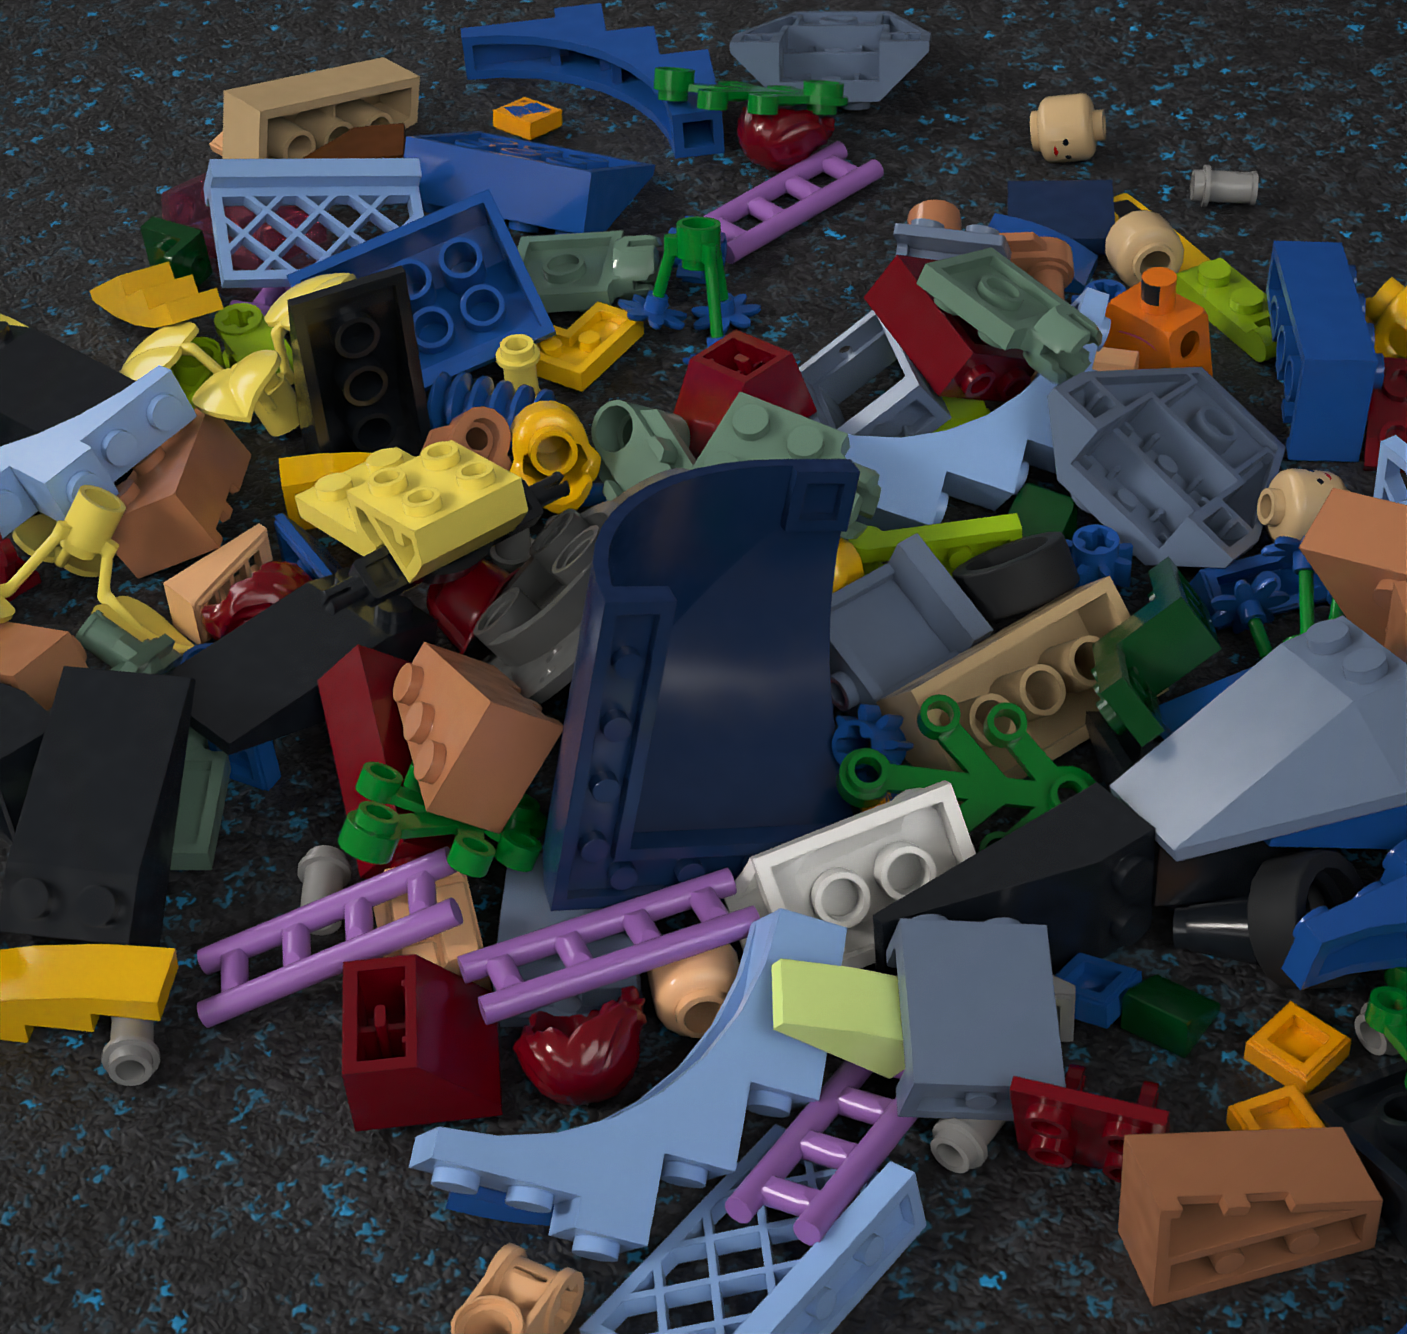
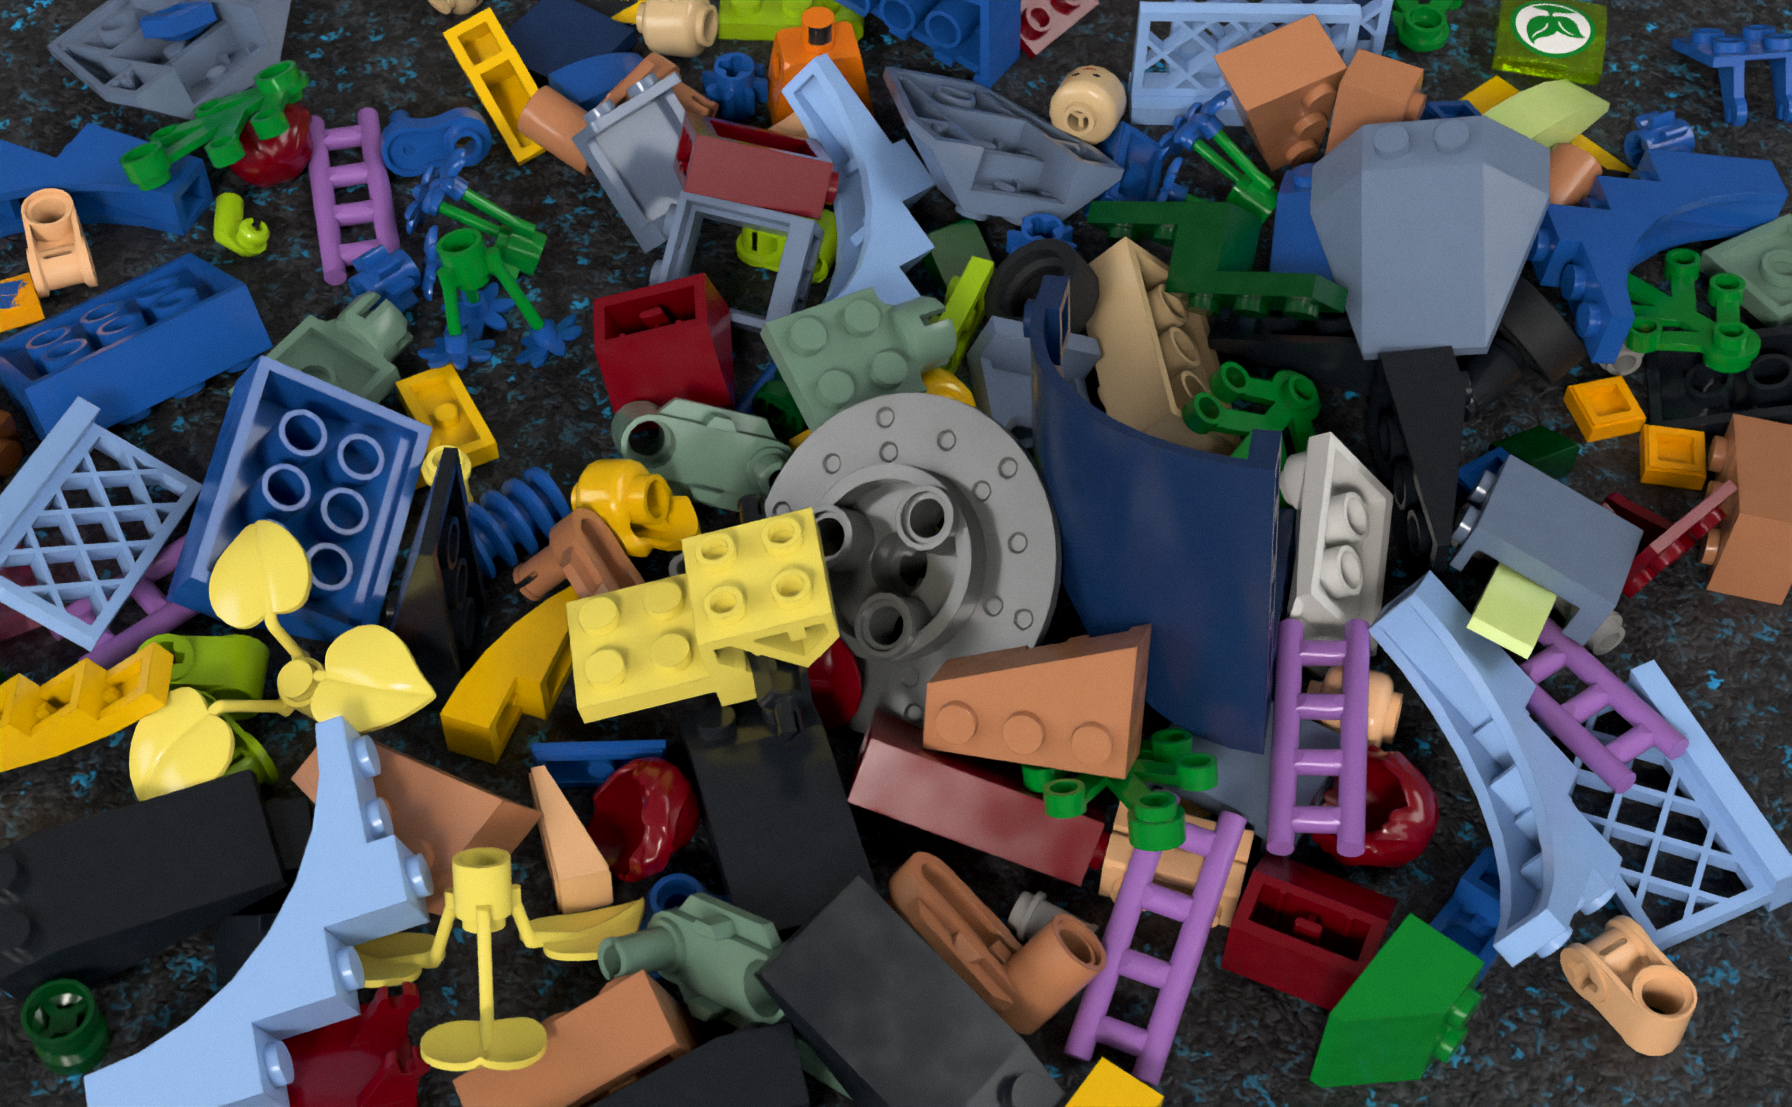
camera: 65 degrees left, 10 degrees up
(253, 830) = (1015, 980): none -> nougat piece
(342, 1123) = (1401, 1011): none -> green slope
(593, 104) = (56, 242): none -> light nougat piece
(692, 169) = (235, 232): none -> lime arm
(798, 286) = (516, 238): none -> plant
(850, 33) = (178, 21): none -> blue tile
(868, 202) = (416, 143): none -> blue piece
(982, 180) = (496, 77): none -> yellow slope
(1013, 311) = (817, 110): sand green plate -> none

